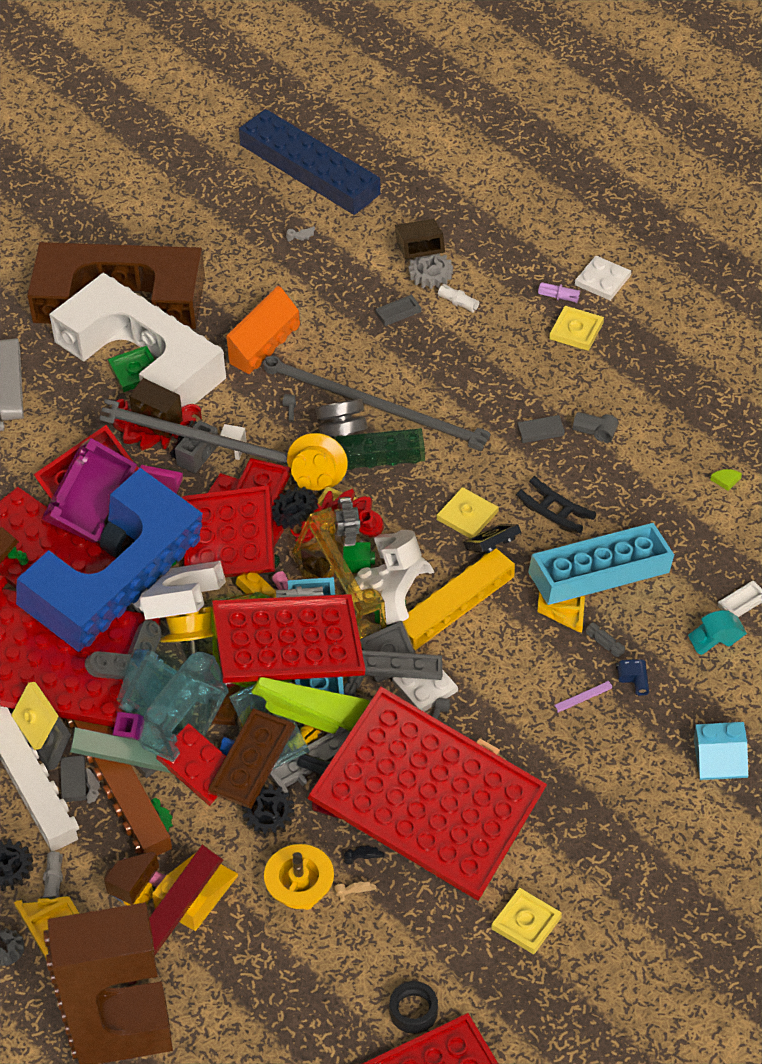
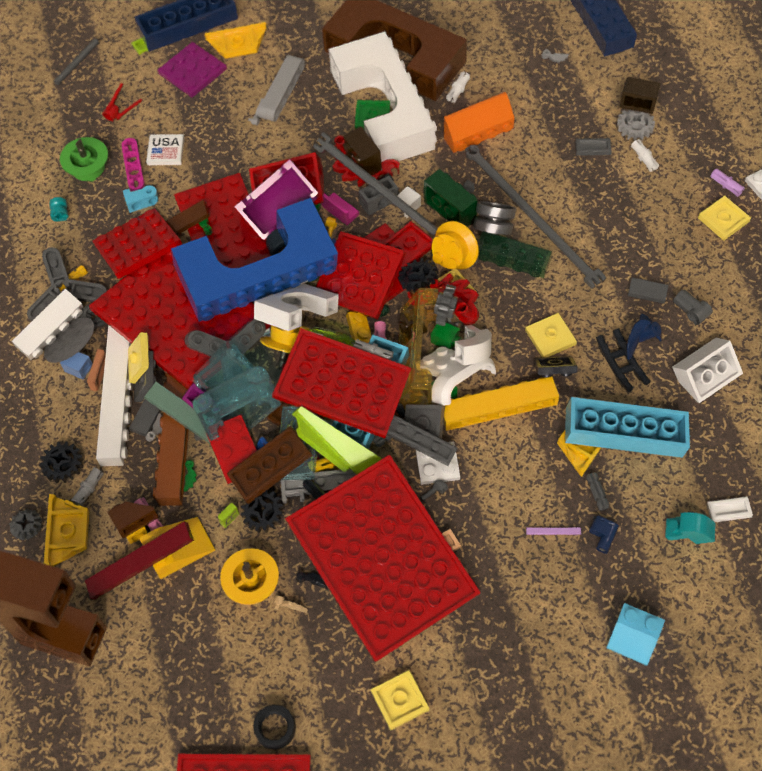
camera: 30 degrees right, 10 degrees up
(213, 304) = (458, 87): none -> white pin
(233, 832) = (228, 515): none -> lime tile
(279, 418) = (450, 198): none -> dark green brick
(562, 467) = (642, 331): none -> dark blue piece
(646, 478) = (708, 369): none -> white slope

